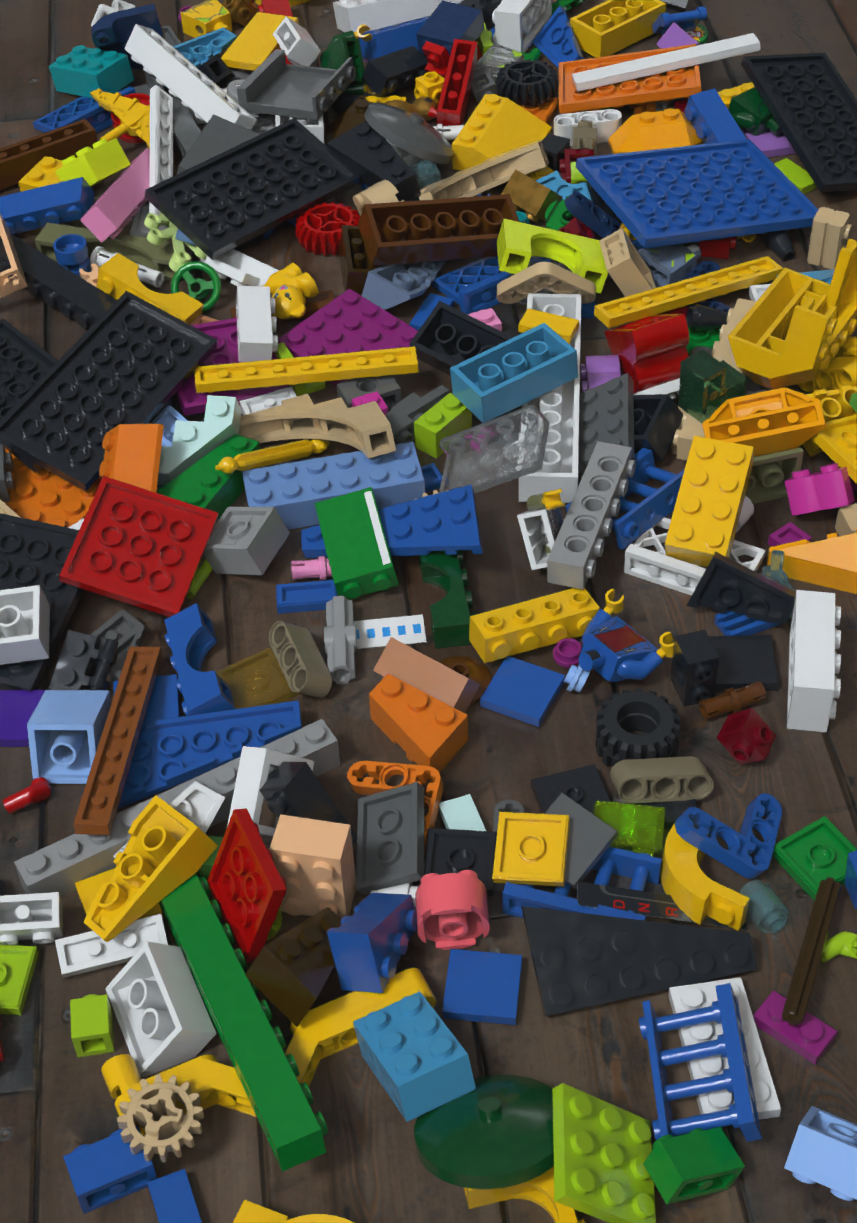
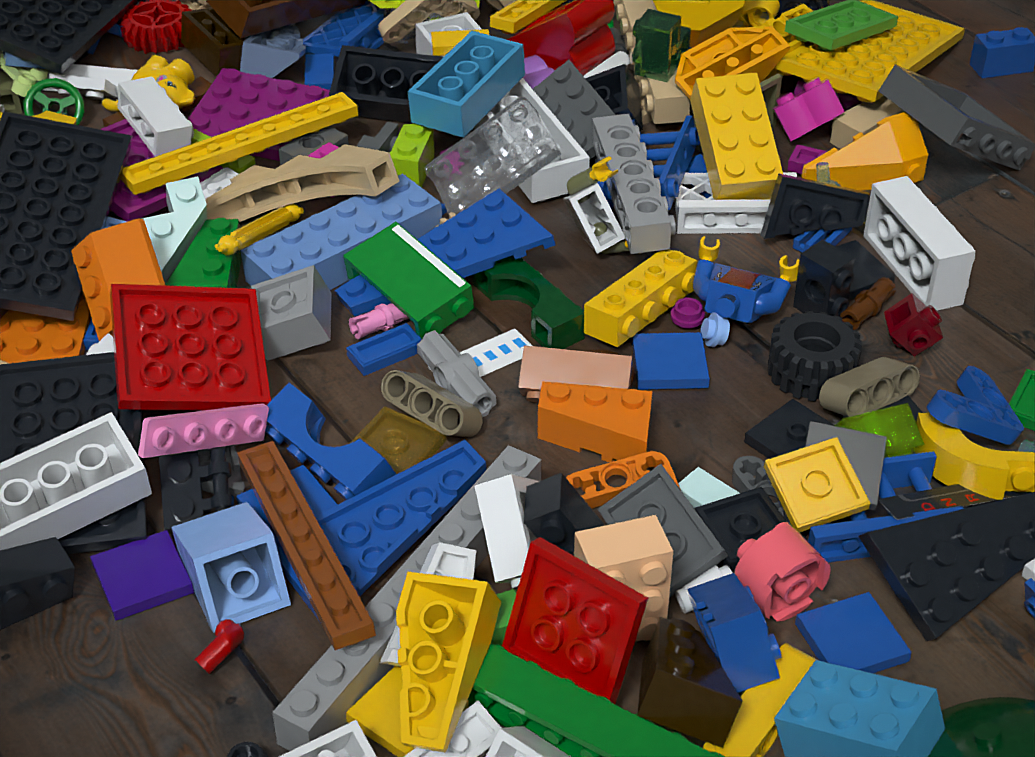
camera: 30 degrees left, 5 degrees down
(104, 621) = (202, 430): none -> bright pink bracket

